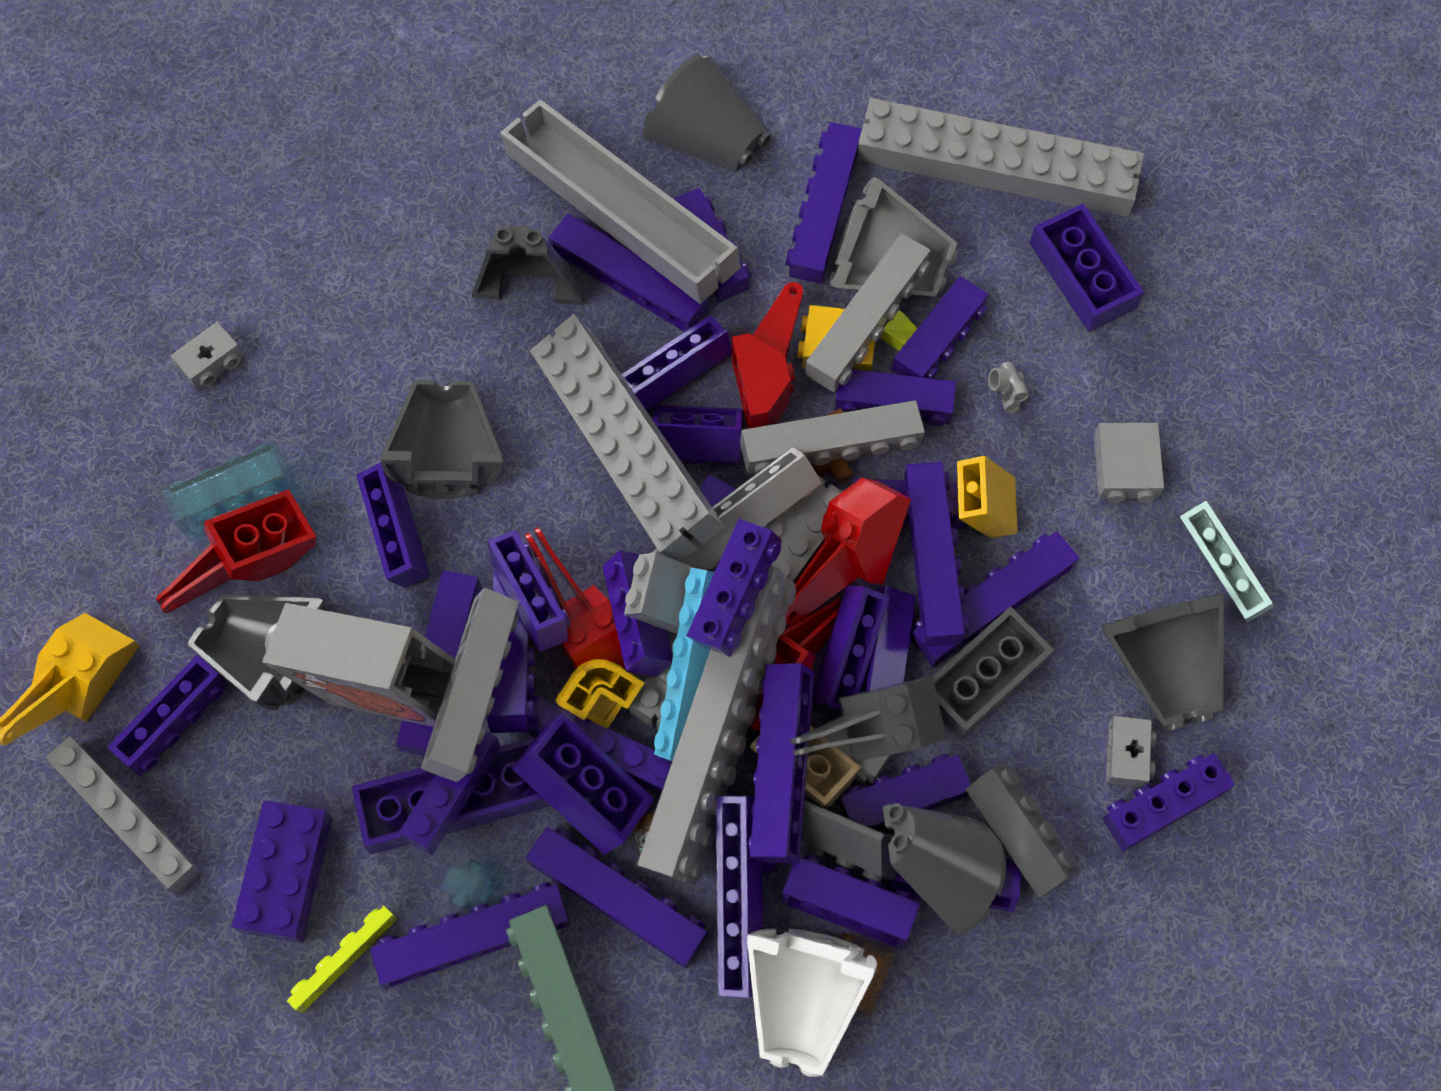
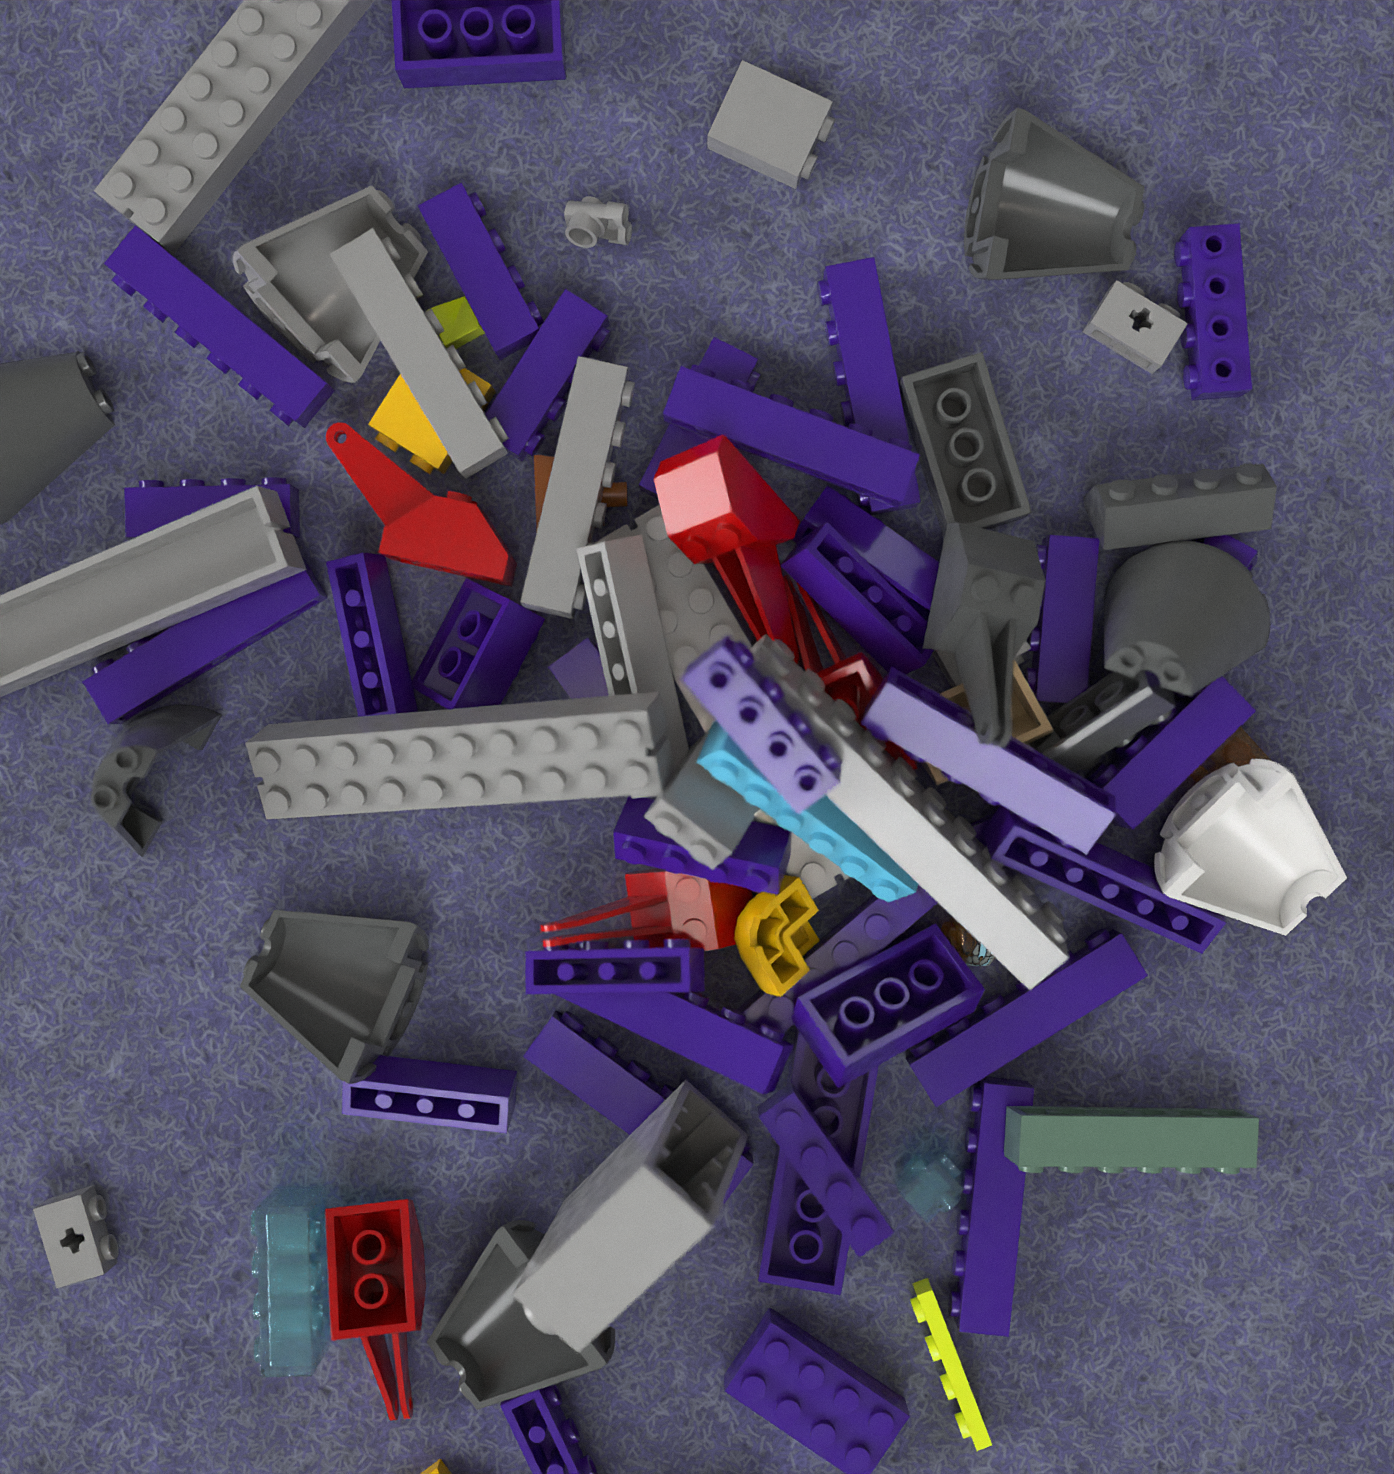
camera: 70 degrees left, 20 degrees up
(471, 685) = (721, 1100): light grey brick -> none
(987, 497) = (745, 331): yellow brick -> none
(1227, 561) = (962, 76): light aqua brick -> none

